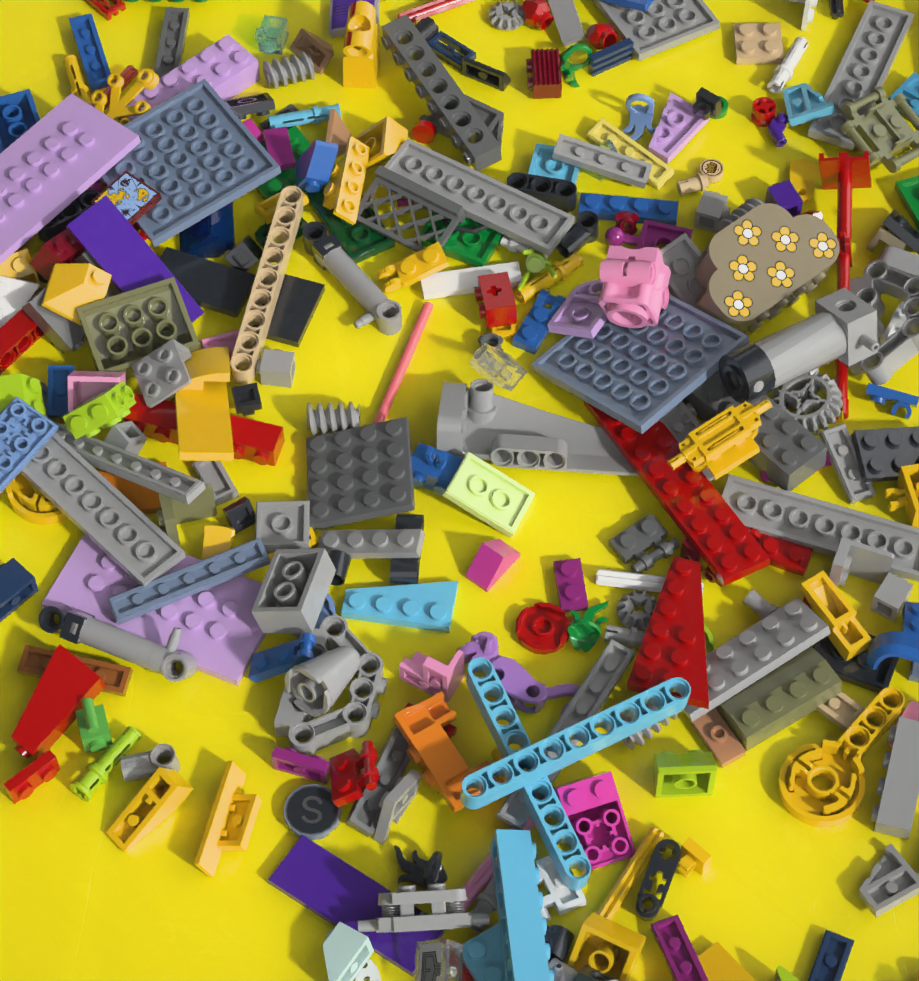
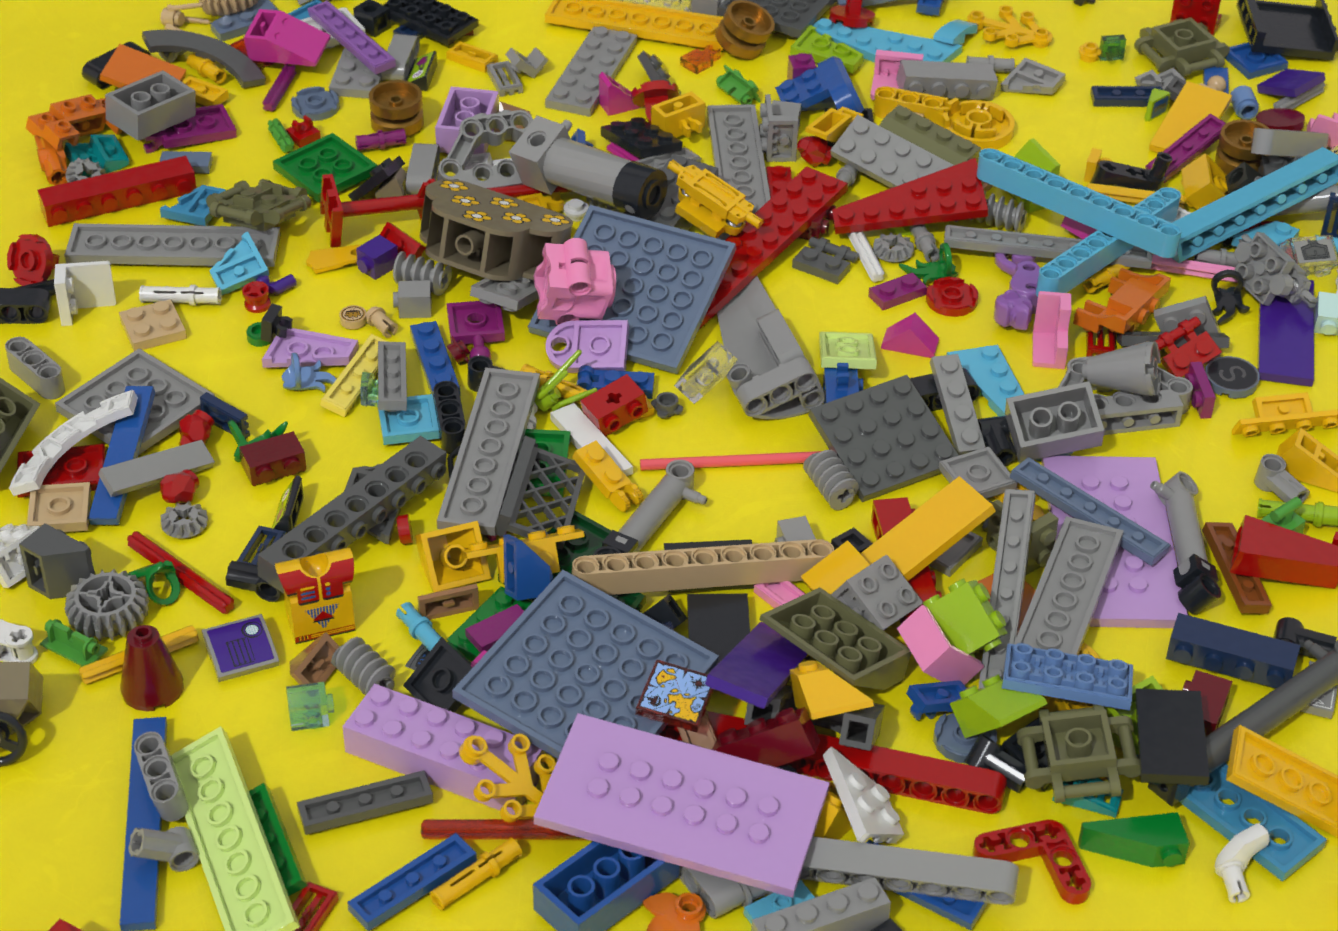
camera: 115 degrees left, 15 degrees down
(281, 657) = (1119, 419): blue plate -> none

